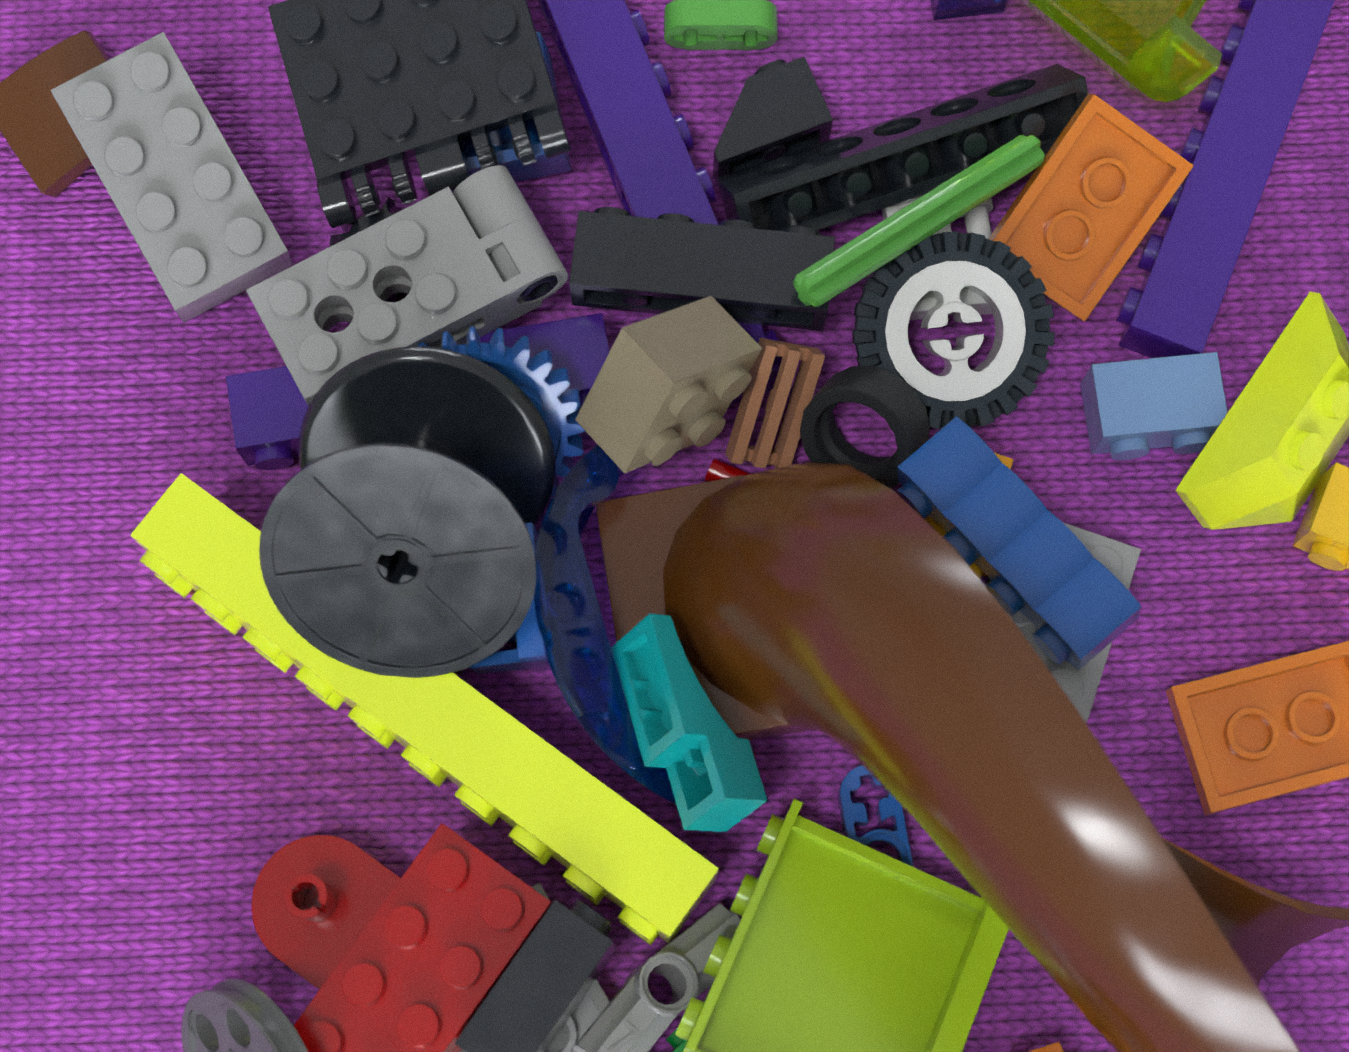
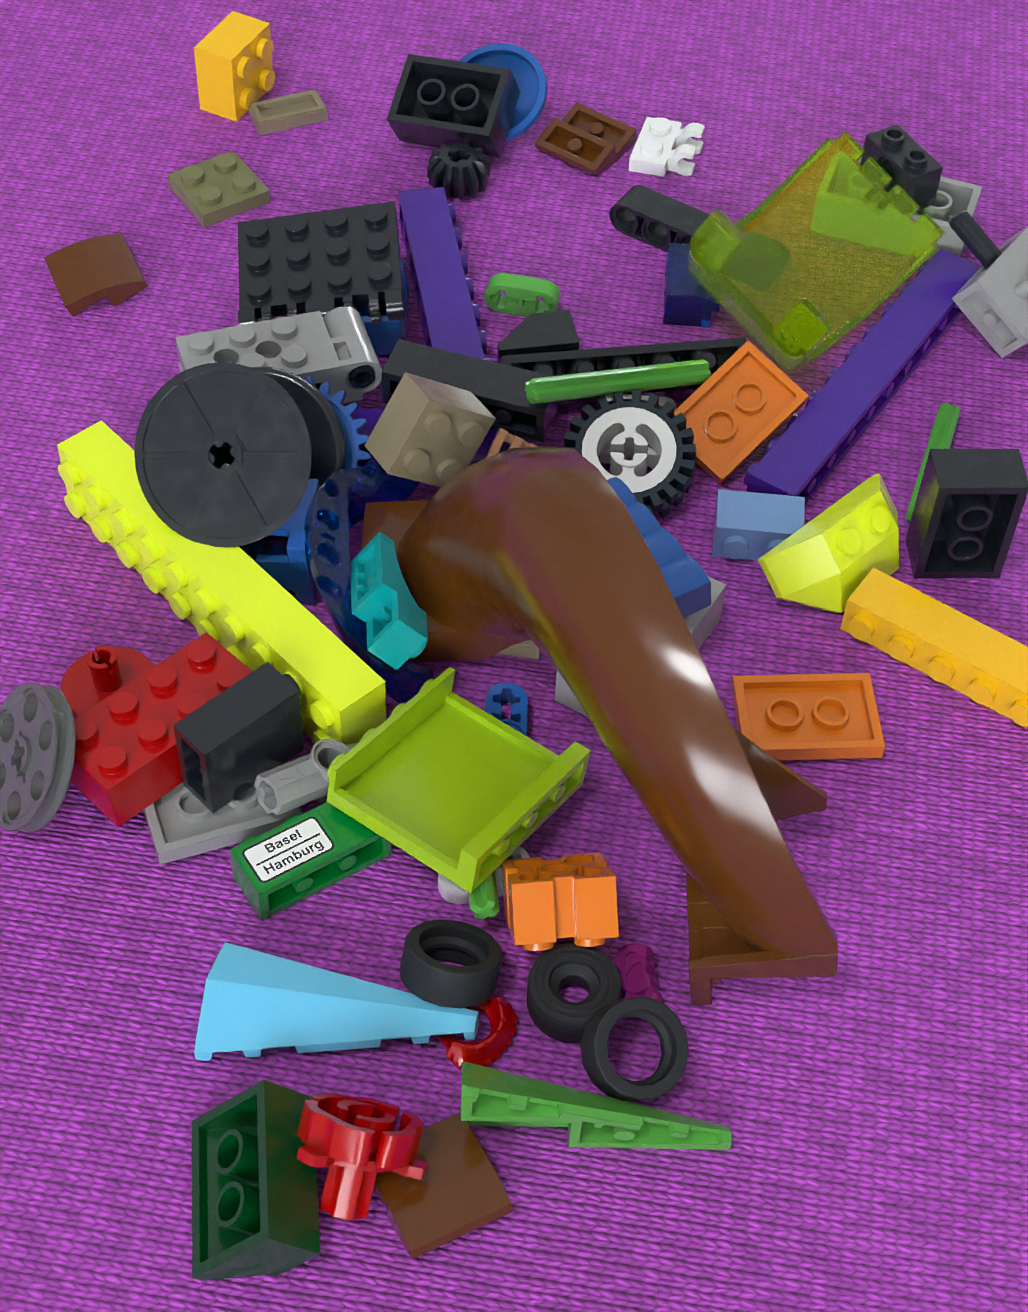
camera: 10 degrees right, 25 degrees down
(172, 177) = (146, 297): light grey brick -> none

